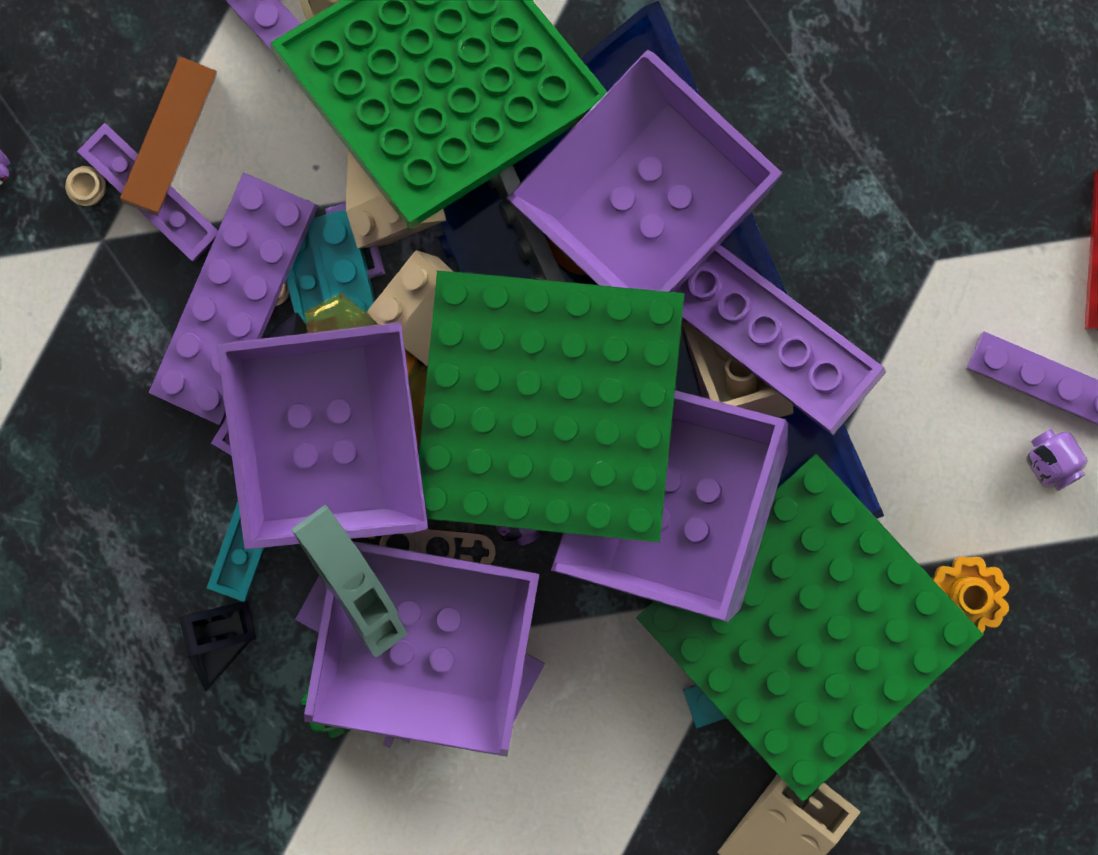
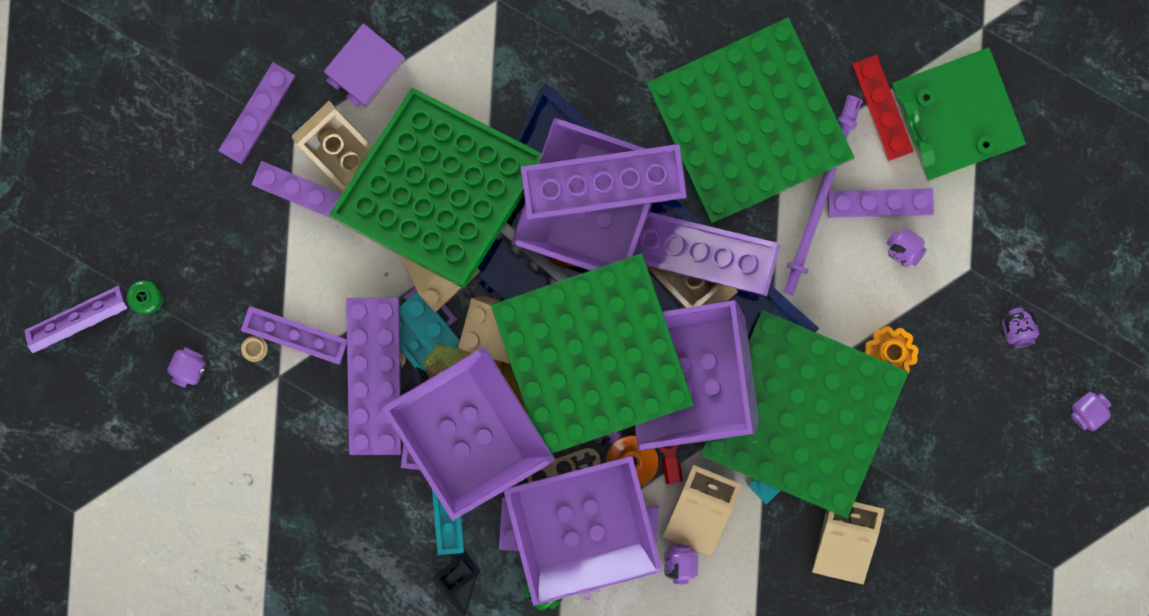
camera: 25 degrees left, 0 degrees up
(168, 136) = (291, 296): dark orange tile -> none
(350, 580) = (524, 510): sand green slope -> none
(539, 756) = (681, 563): none -> medium lavender head
(558, 588) = (646, 459): none -> orange dish
(589, 613) = (671, 465): none -> red bar
(603, 695) = (702, 510): none -> tan slope
(676, 169) = (603, 182): none -> medium lavender plate
(919, 183) = (750, 120): none -> green plate
(1050, 249) = (847, 124): none -> medium lavender bar

